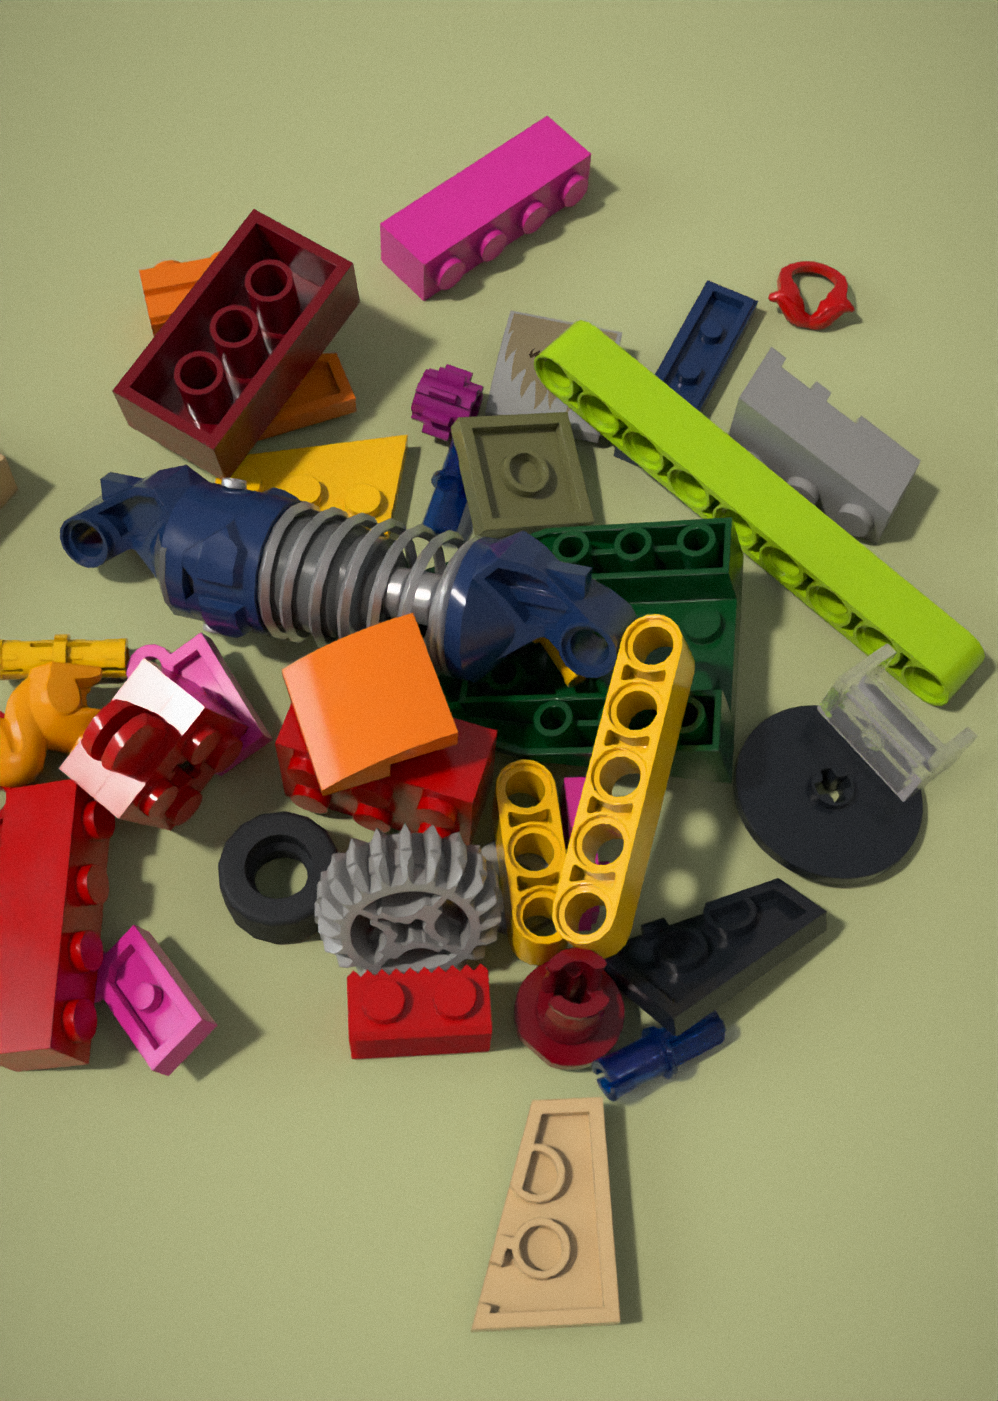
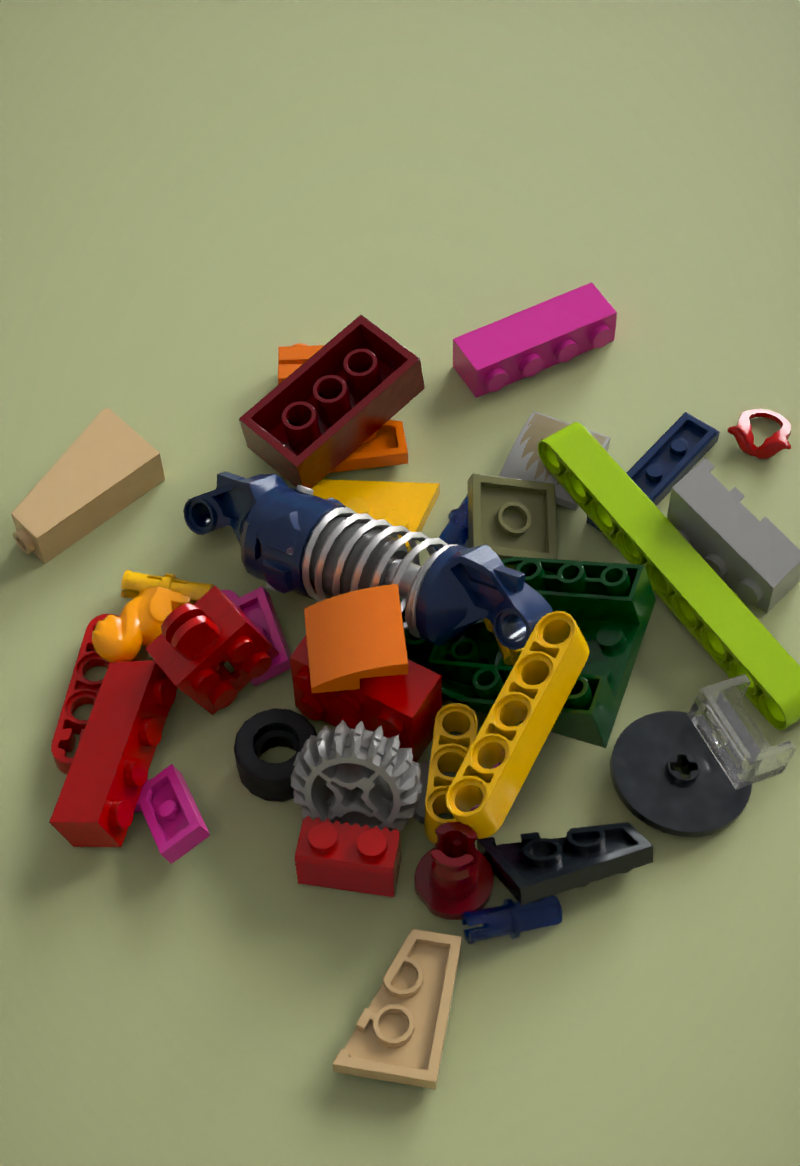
camera: 20 degrees right, 10 degrees down
(443, 398) = (470, 458): magenta gear -> none

